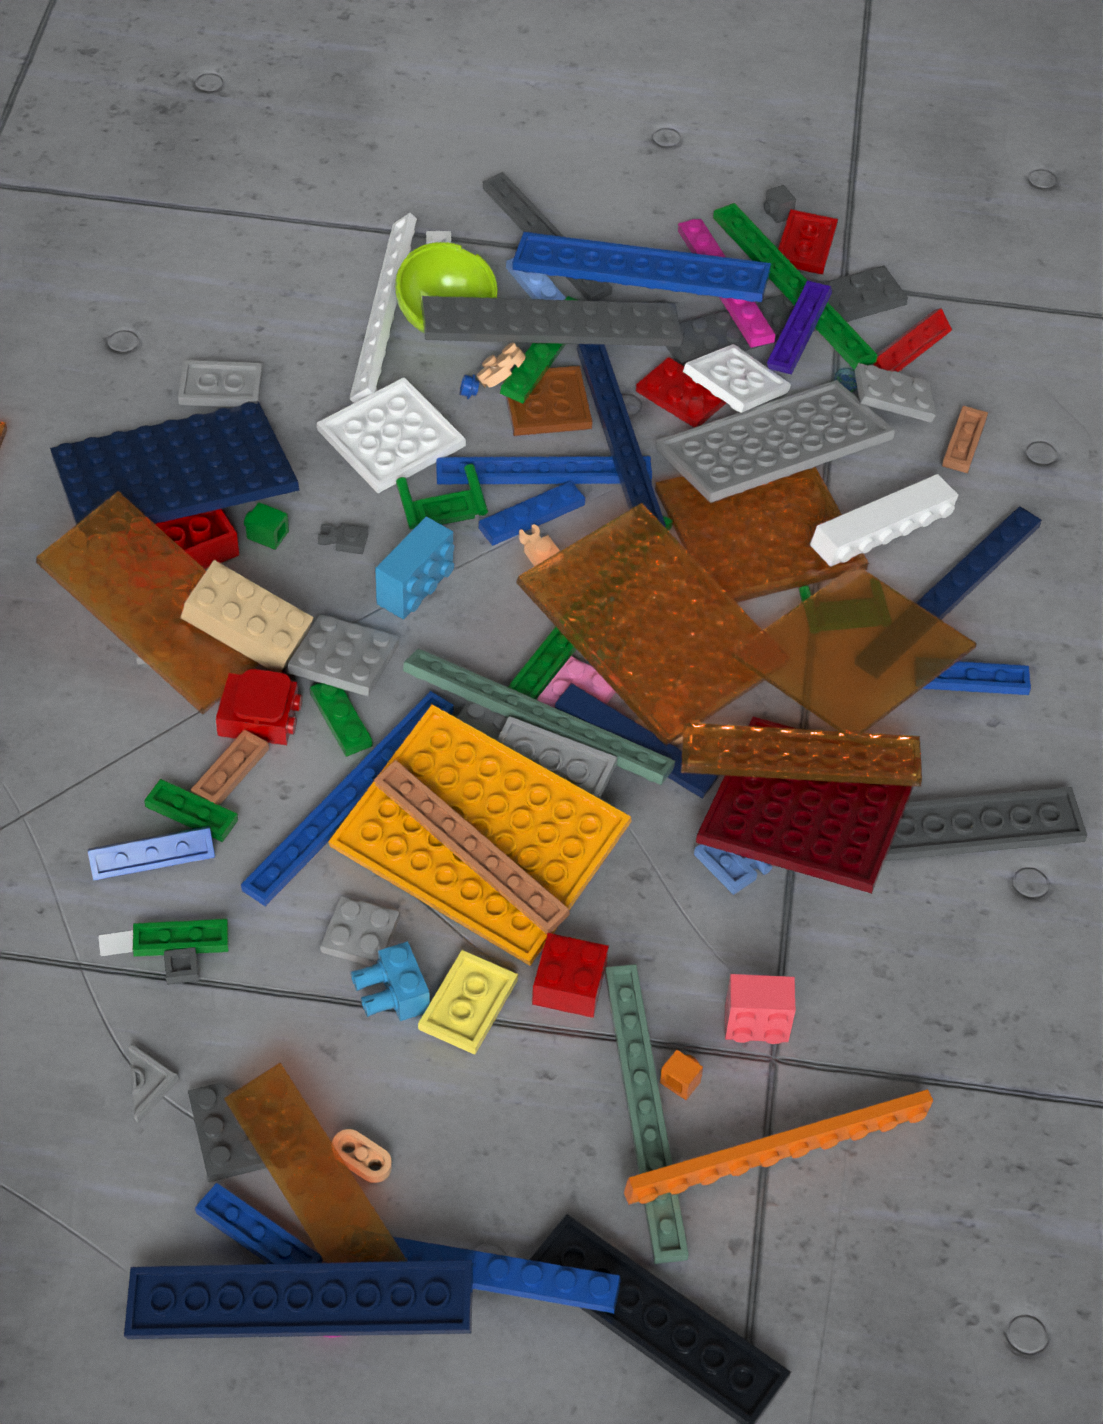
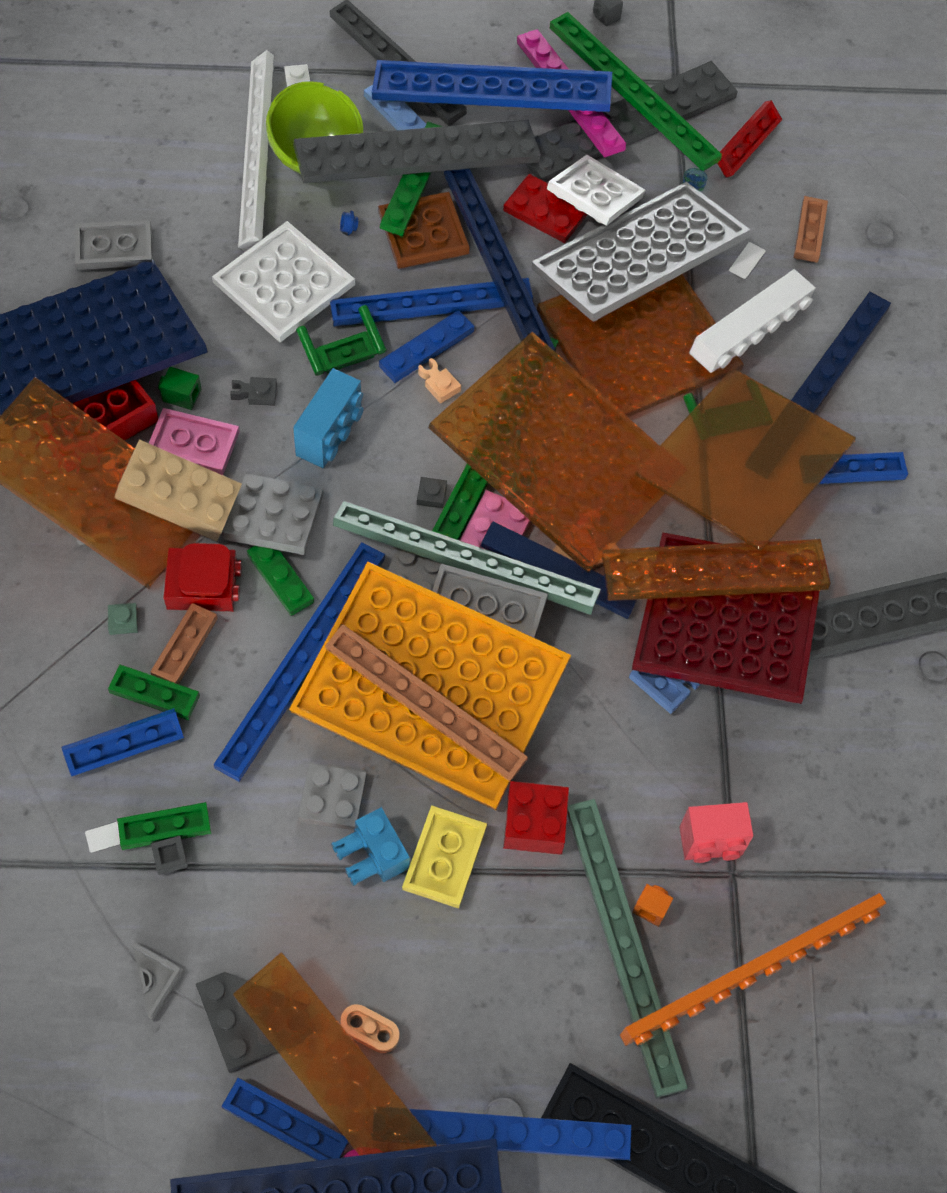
camera: 10 degrees left, 10 degrees up
(170, 738) = (122, 618): none -> sand green plate
(277, 573) = (195, 439): none -> bright pink plate
(498, 368) = (374, 202): light nougat plate -> none
(513, 653) = (431, 492): none -> dark grey plate
(799, 327) = (647, 133): dark purple plate -> none
(808, 240) = (638, 42): red plate -> none
(891, 464) = (747, 260): none -> white sticker
(895, 392) = (741, 189): light grey plate -> none

